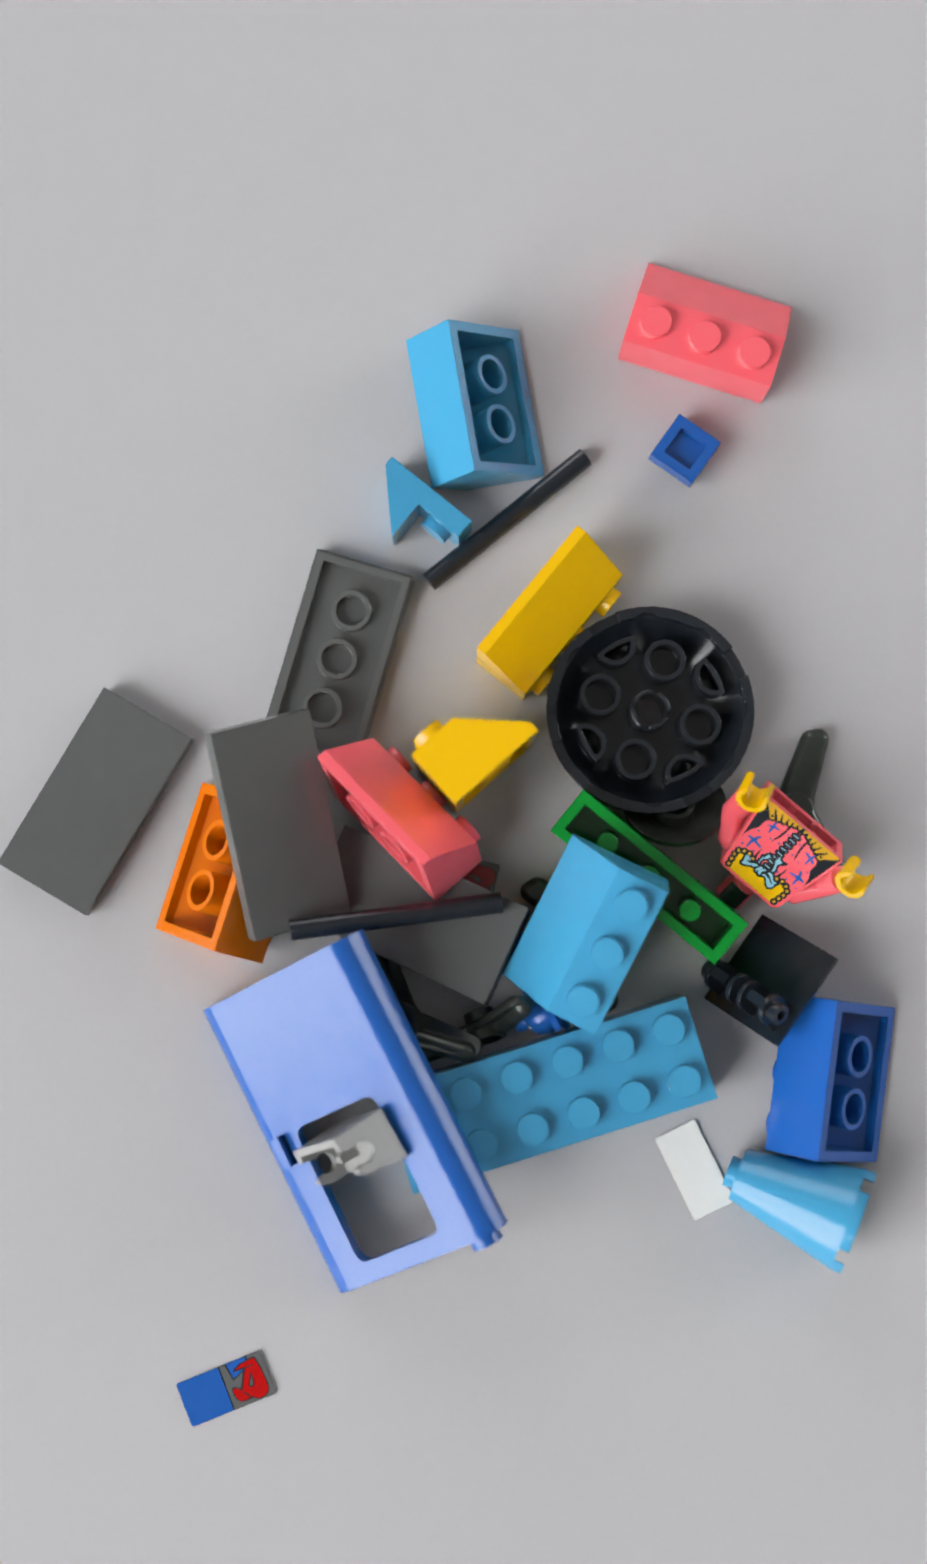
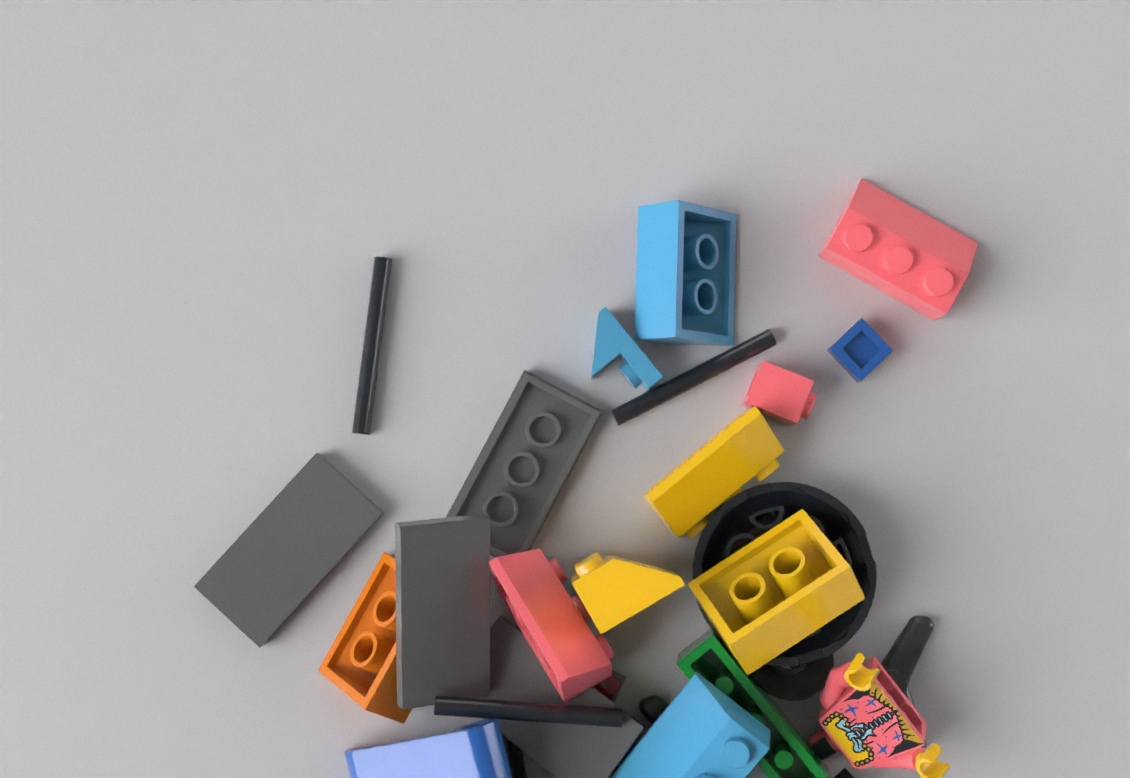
camera: 10 degrees right, 0 degrees up
(142, 557) = (372, 345): none -> black bar
(607, 514) = (780, 394): none -> coral brick
(644, 727) = (776, 591): none -> yellow slope

